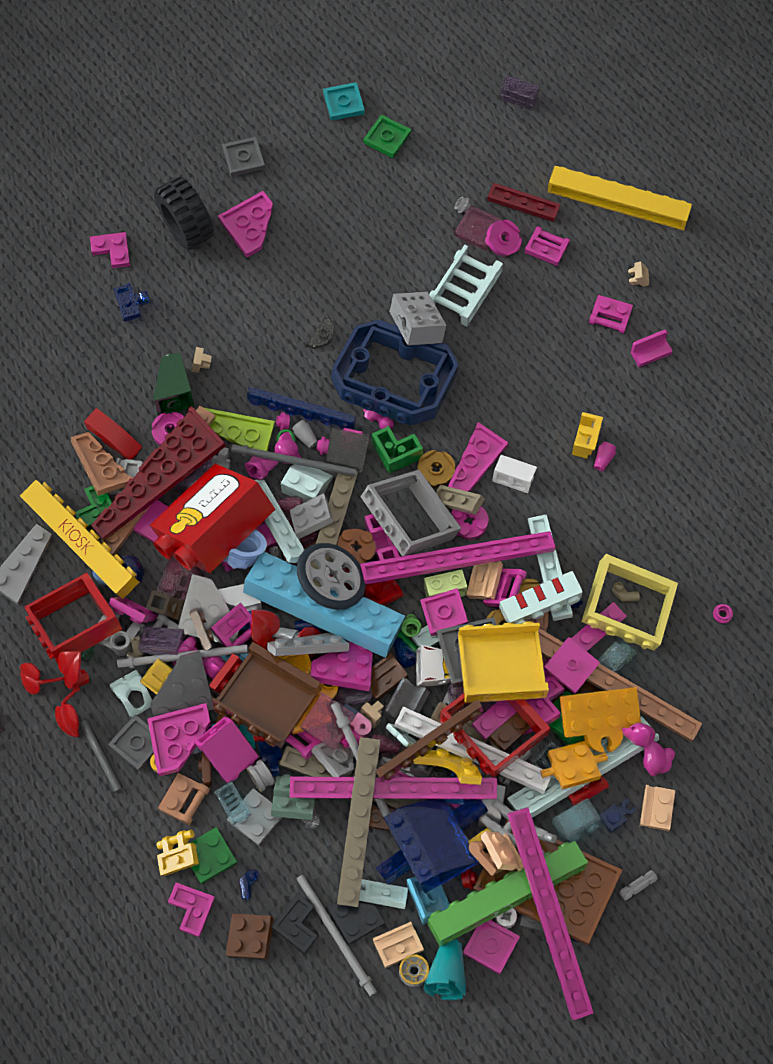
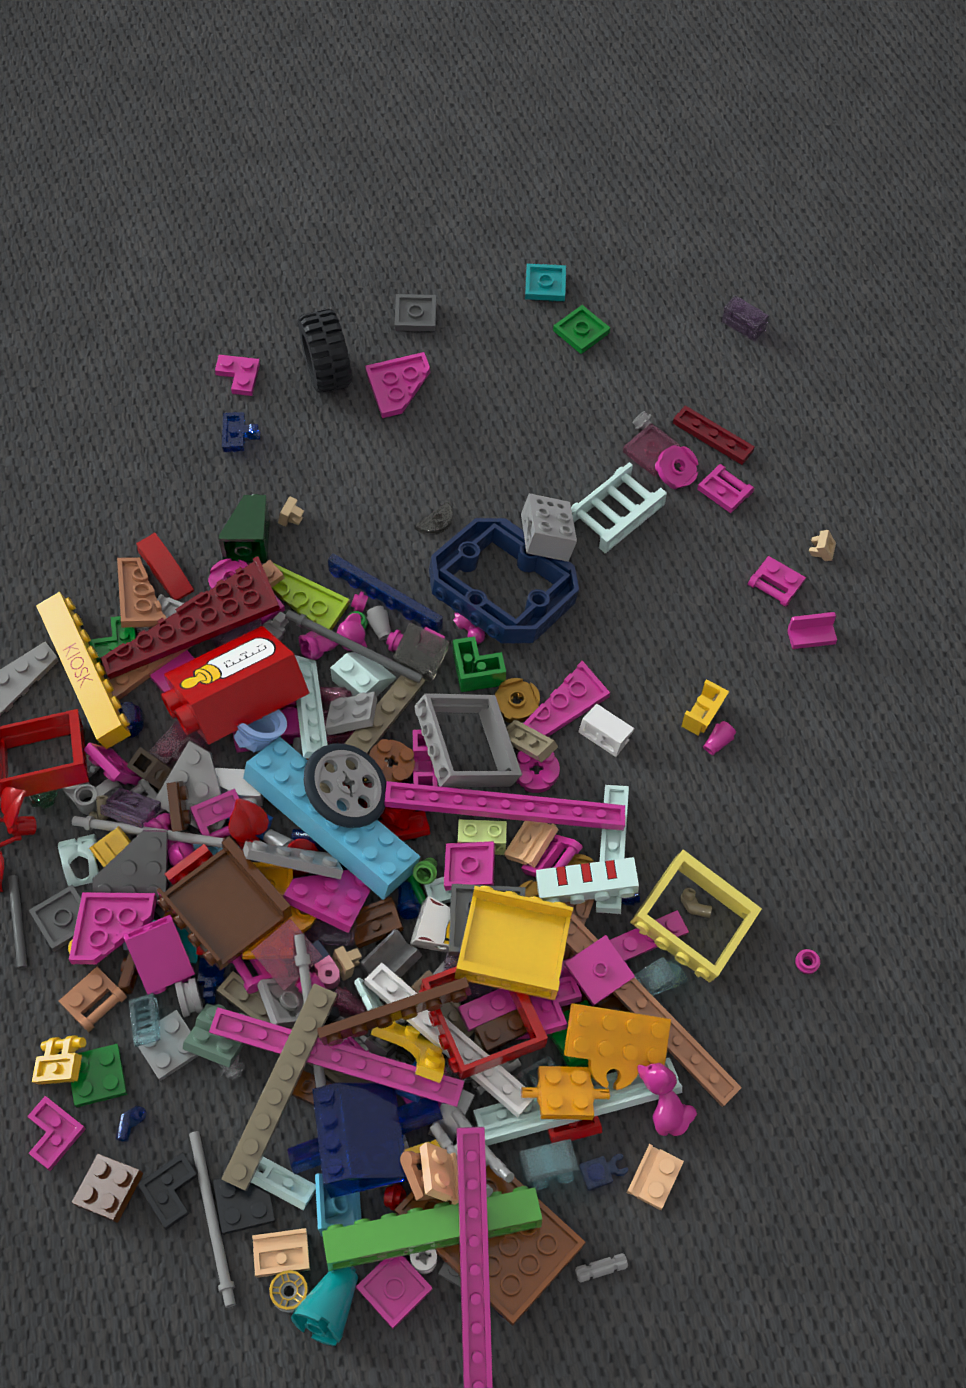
camera: 15 degrees right, 5 degrees down
(619, 197) = (826, 457): yellow brick -> none

